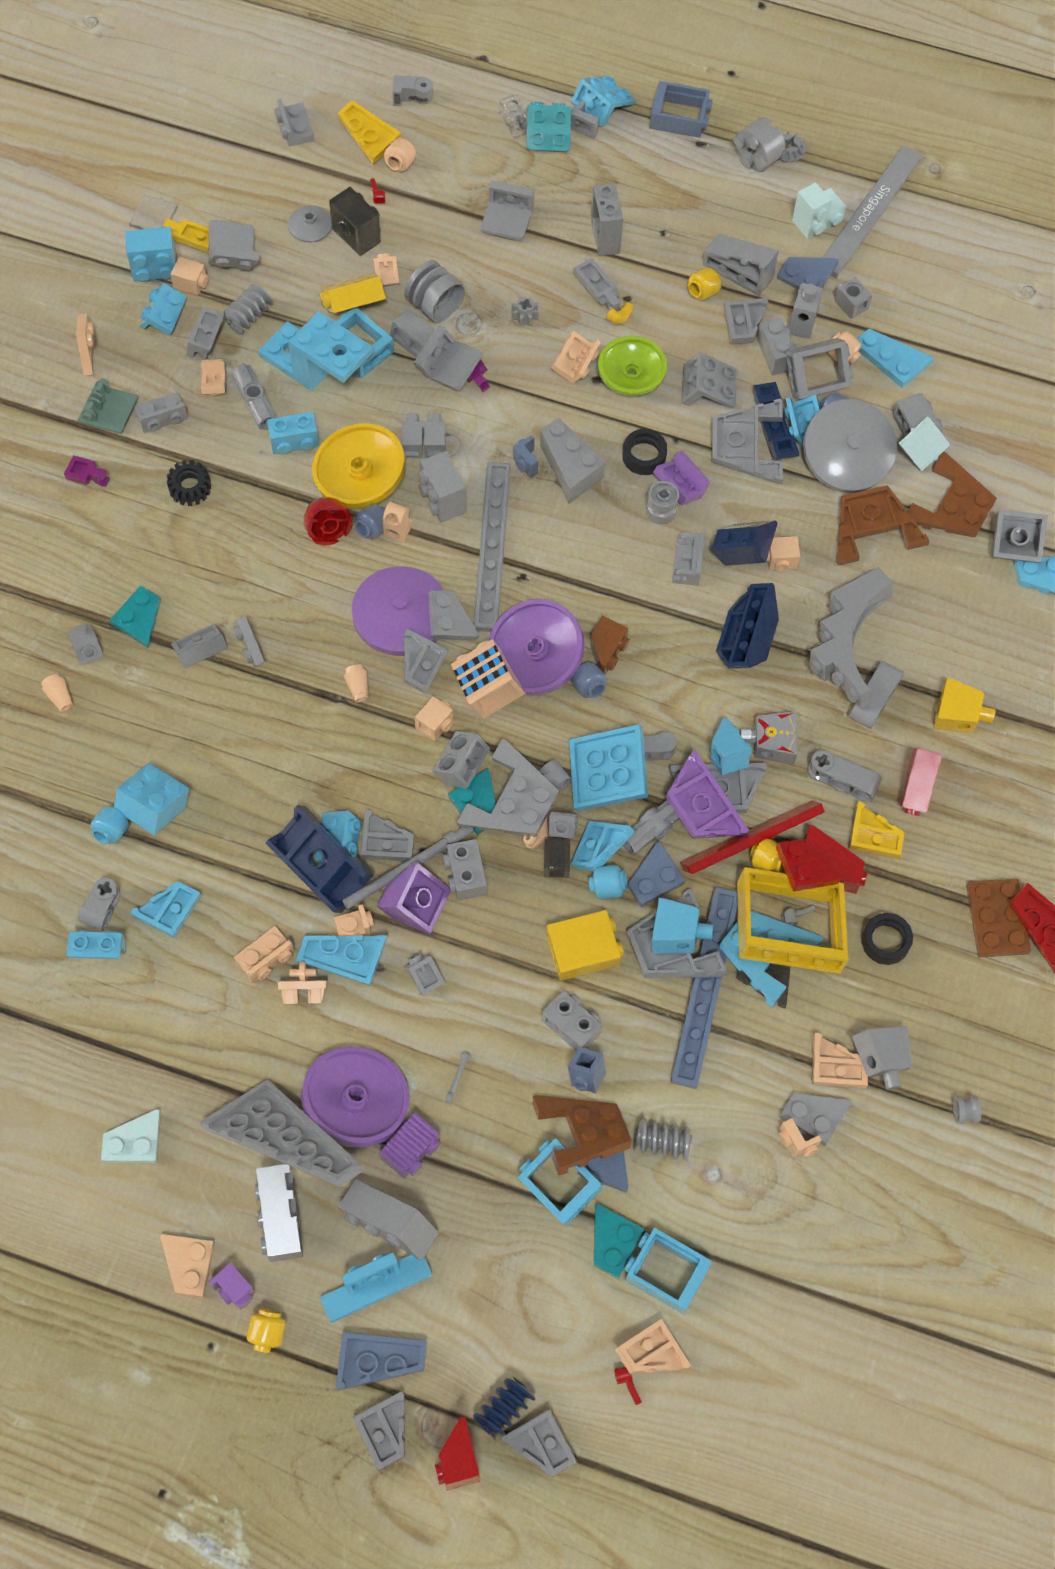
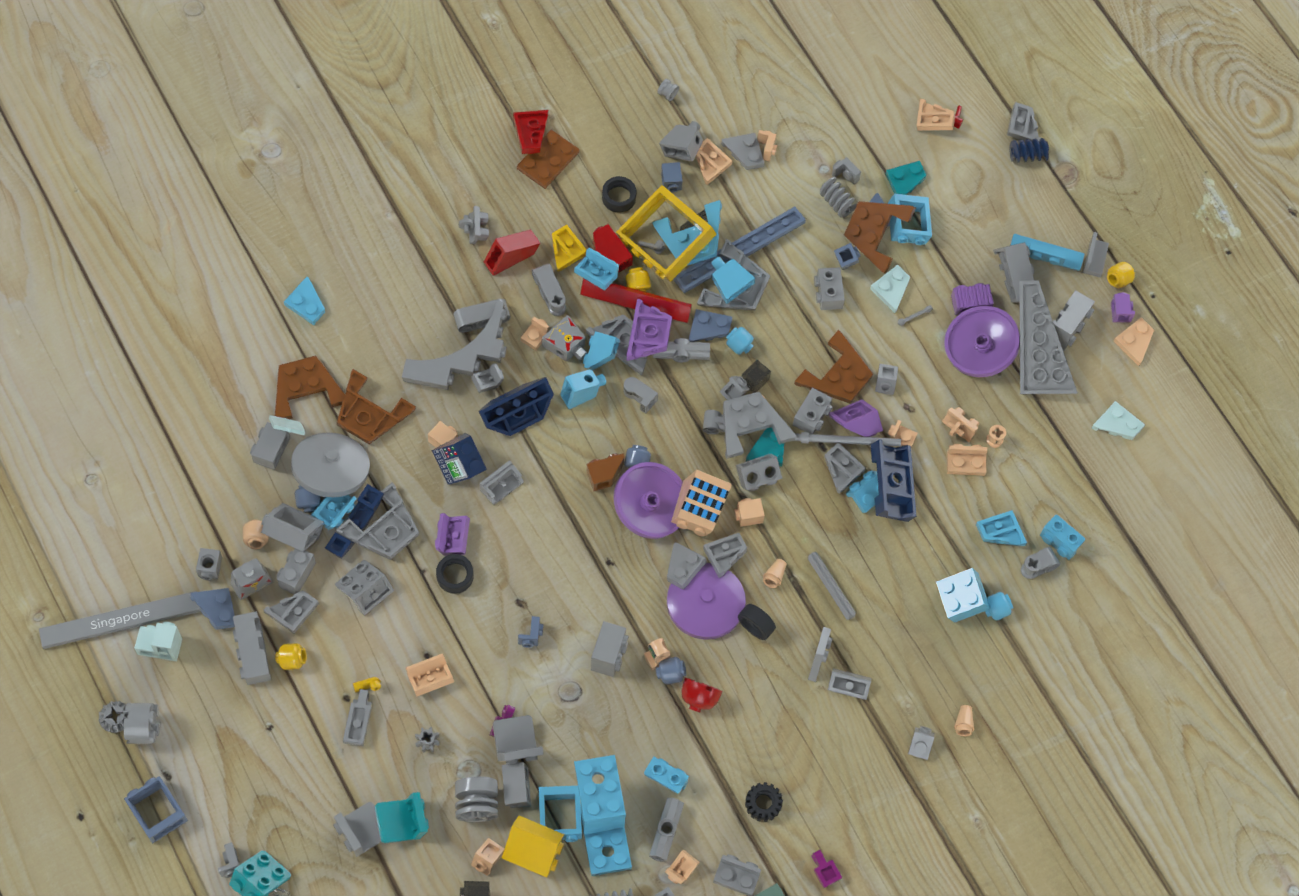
camera: 140 degrees left, 0 degrees up
(138, 615) = (872, 735): teal wing -> none
(251, 1011) = (994, 436): none -> light nougat bush
(294, 717) = (831, 585): none -> light grey axle
(314, 1333) = (1095, 257): none -> light grey panel
(331, 616) = (756, 621): none -> black tyre
(346, 956) = (923, 421): medium azure wing -> none
(359, 465) = (646, 713): yellow dish -> none
(377, 1358) = (1074, 222): sand blue wing -> none
(384, 1430) = (1096, 189): light grey wing -> none
(415, 430) = (584, 702): light grey hips -> none
(457, 1459) = (1074, 143): red slope -> none
(468, 945) = (845, 377): none -> dark orange wing
(482, 238) = (402, 819): none -> teal bracket
(492, 546) = (608, 596): light grey tile -> none
(510, 1088) = (891, 287): none -> light aqua wing
(571, 459) = (508, 603): light grey wedge -> none
(584, 945) = (785, 320): yellow brick -> none
(599, 844) = (725, 363): medium azure wing -> none
(601, 97) = (195, 869): medium azure bracket -> none
(606, 219) = (310, 745): light grey window -> none
(608, 768) = (680, 396): medium azure plate -> none
(632, 356) = (400, 621): lime dish -> none
(662, 502) = (481, 527): light grey wheel -> none
(679, 1186) = (848, 169): none -> light grey bracket
(702, 1265) = (890, 126): medium azure window -> none
(708, 698) = (581, 387): none -> medium azure torso
(804, 638) = (488, 379): none -> light grey bracket
(805, 867) = (630, 251): red wing -> none
(810, 722) = (534, 333): none -> light nougat bracket
(815, 815) = (597, 269): none -> medium azure bracket
(855, 1004) = (671, 176): none -> sand blue brick
(892, 357) = (230, 507): medium azure wing -> none
(961, 708) = (445, 269): yellow torso -> none
(992, 786) = (471, 225): none -> light grey hips
(1019, 536) = (297, 328): light grey slope -> none

